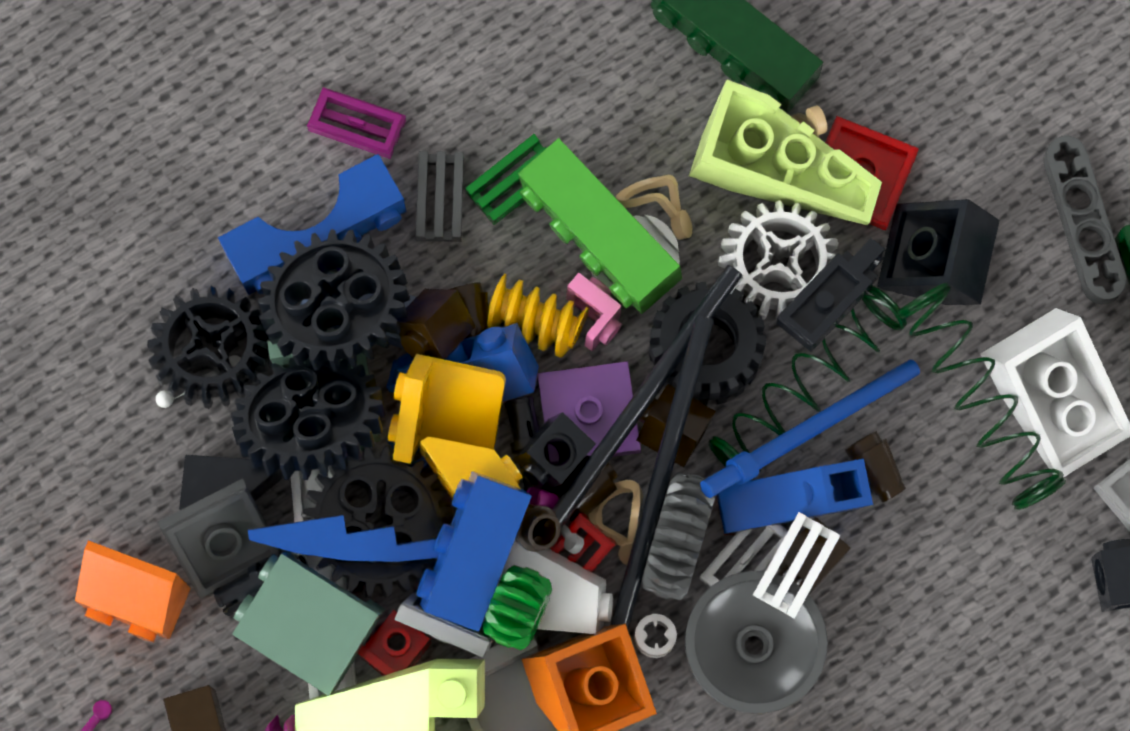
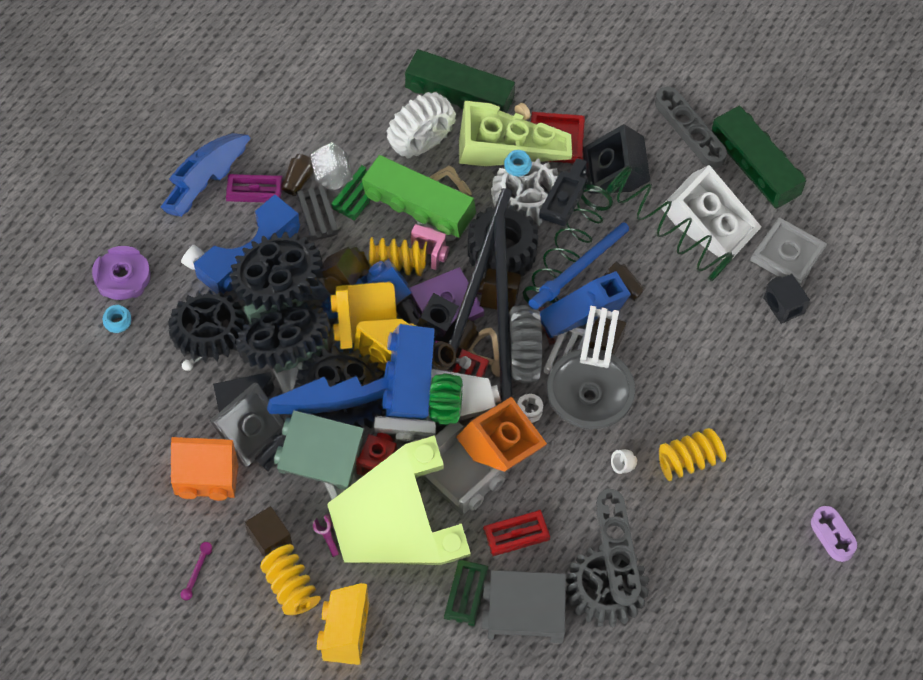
camera: 20 degrees left, 15 degrees down
(72, 280) = (113, 312): none -> medium azure plate
(99, 191) = (121, 287): none -> medium lavender plate
(226, 218) = (191, 256): none -> white hinge
(295, 60) = (206, 163): none -> blue slope
(429, 121) = (298, 174): none -> dark brown cone
(483, 127) = (331, 166): none -> clear brick
(646, 97) = (421, 124): none -> white gear
(779, 205) = (518, 157): none -> medium azure plate

